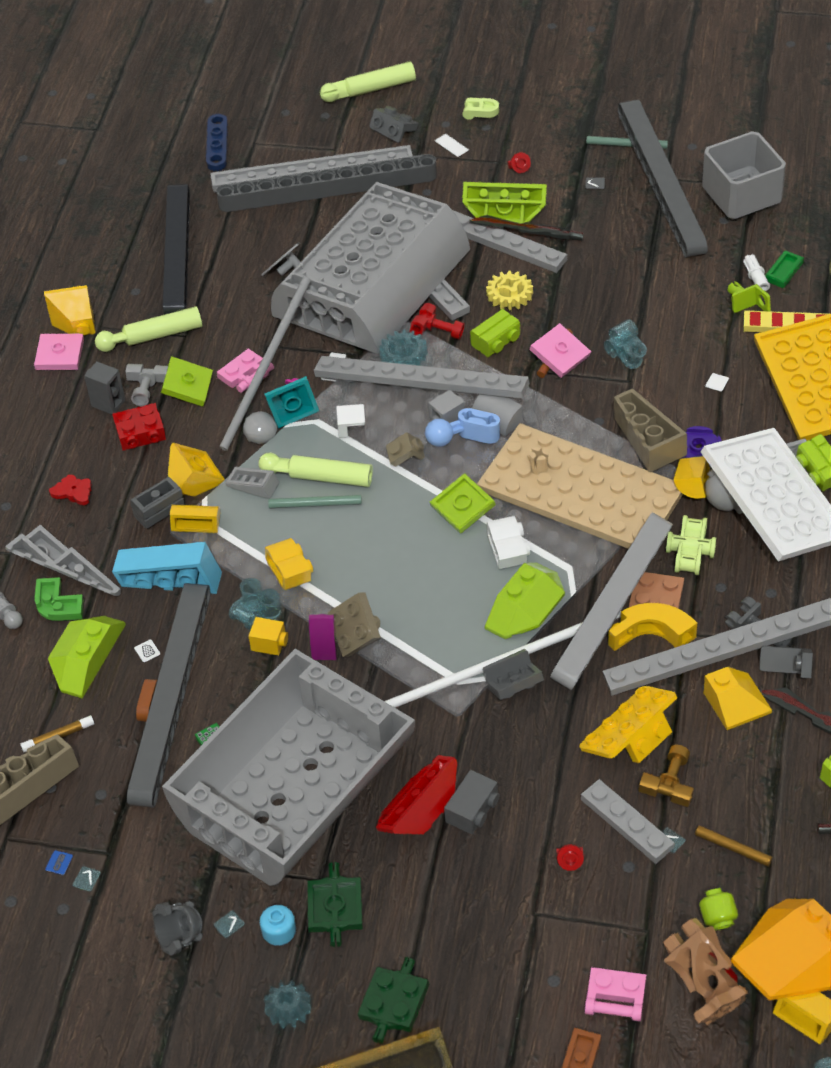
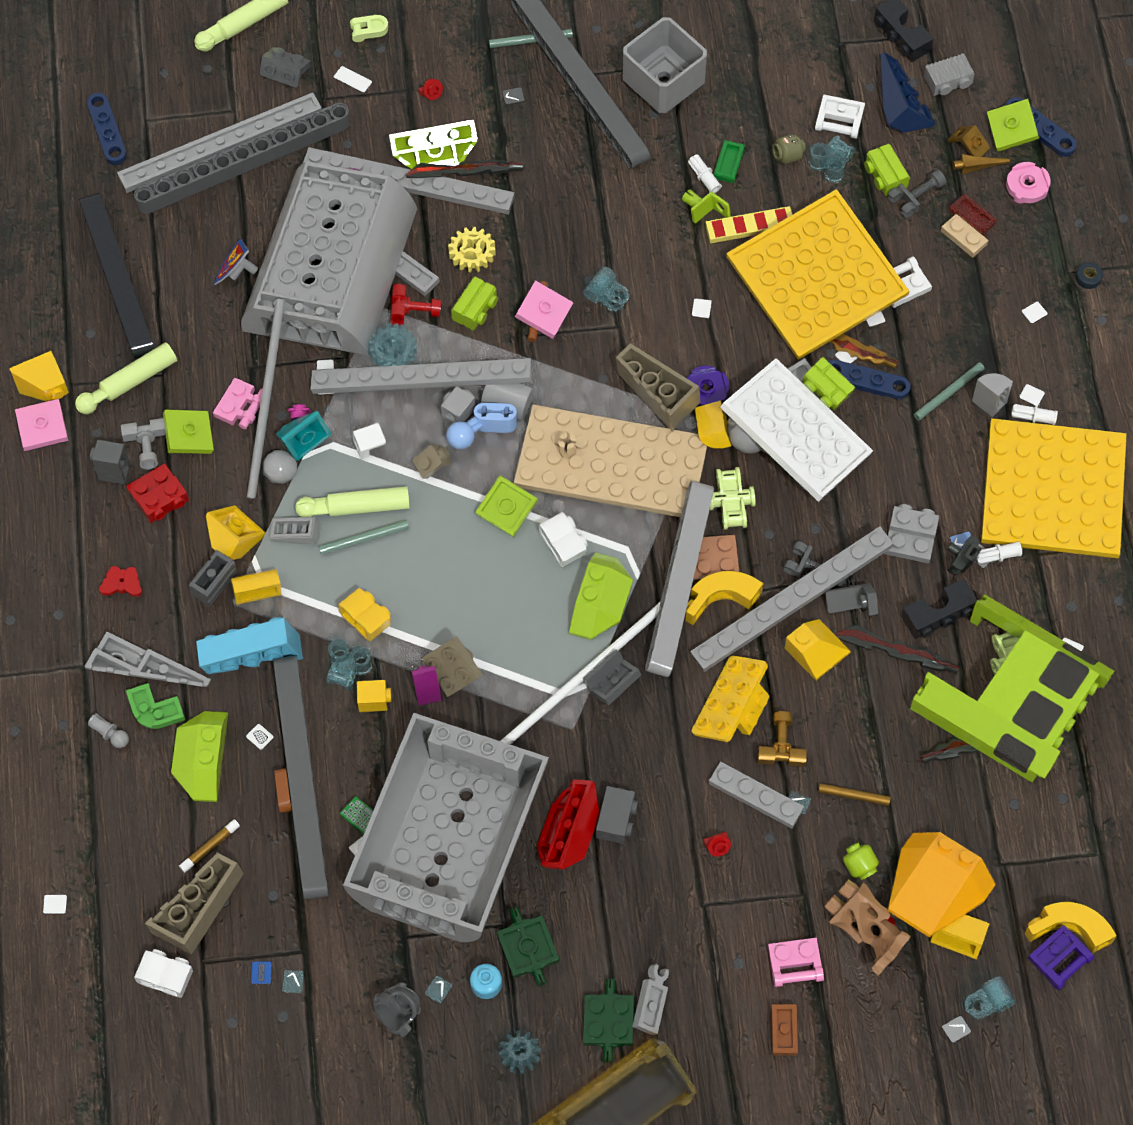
camera: 20 degrees left, 15 degrees up
(444, 992) = (651, 1001): none -> light grey plate

